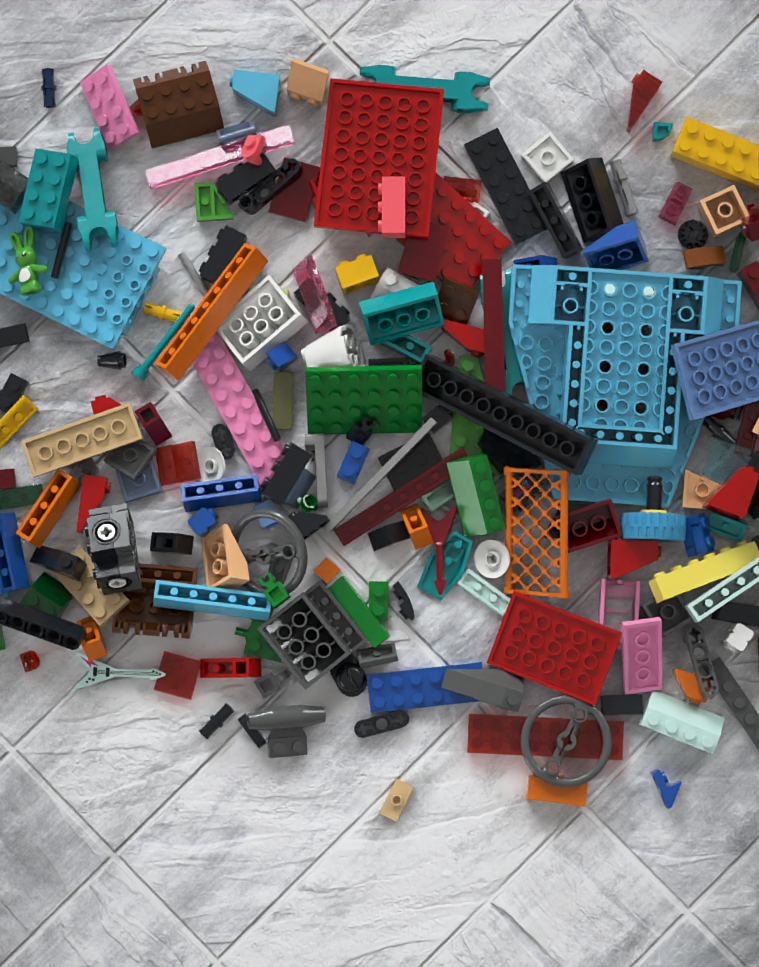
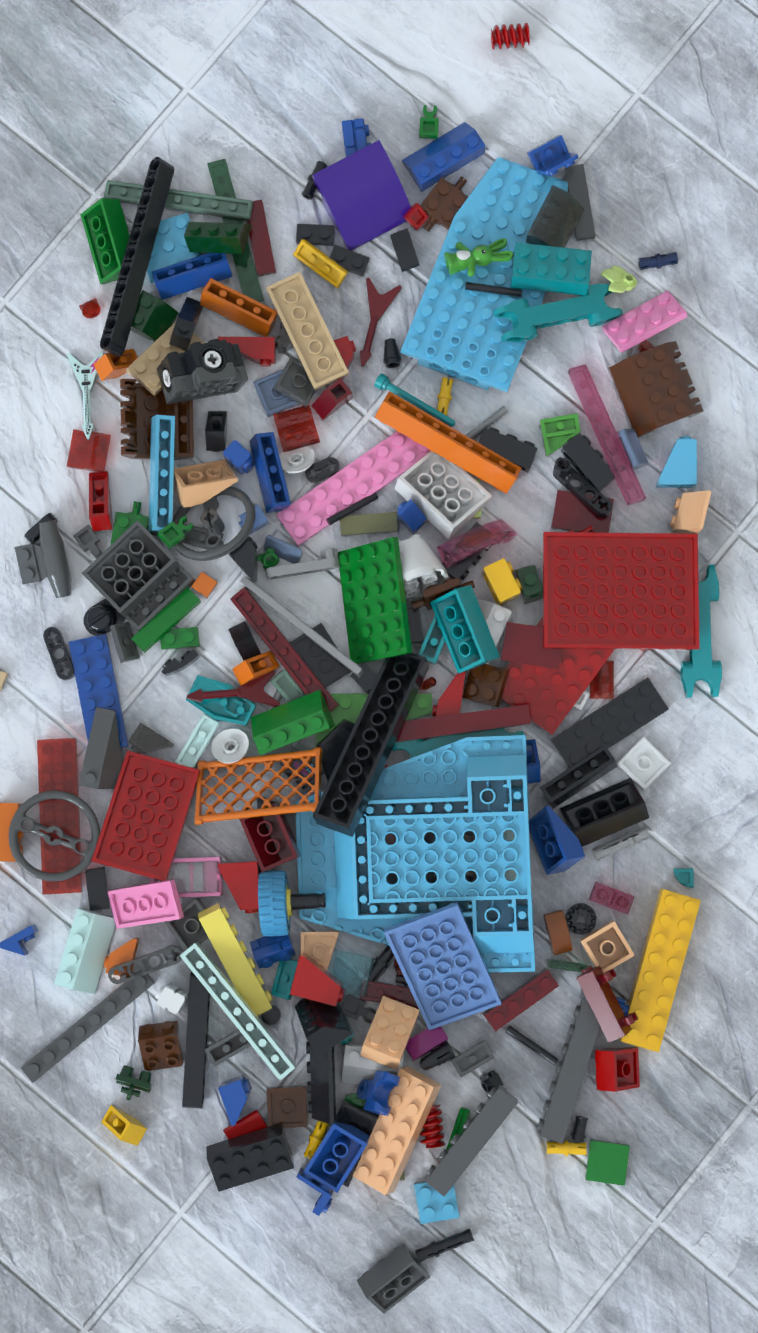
camera: 90 degrees right, 0 degrees up
(62, 370) = (377, 305): none -> dark red piece
(63, 126) = (620, 279): none -> yellowish green plate
(216, 721) = (47, 493): black pin -> none
(252, 148) = (617, 464): coral plate -> none
(285, 472) = (295, 532): black brick -> none
(353, 462) = (312, 598): blue brick -> none
(359, 245) = (530, 583): none -> dark green torso
(361, 341) = (433, 592): none -> reddish brown plate
(361, 431) = (343, 603): black plate -> none
(392, 207) = (569, 607): coral brick -> none
(478, 640) = (148, 740): none -> clear smoke slope
(642, 92) = (721, 853): clear red slope -> none

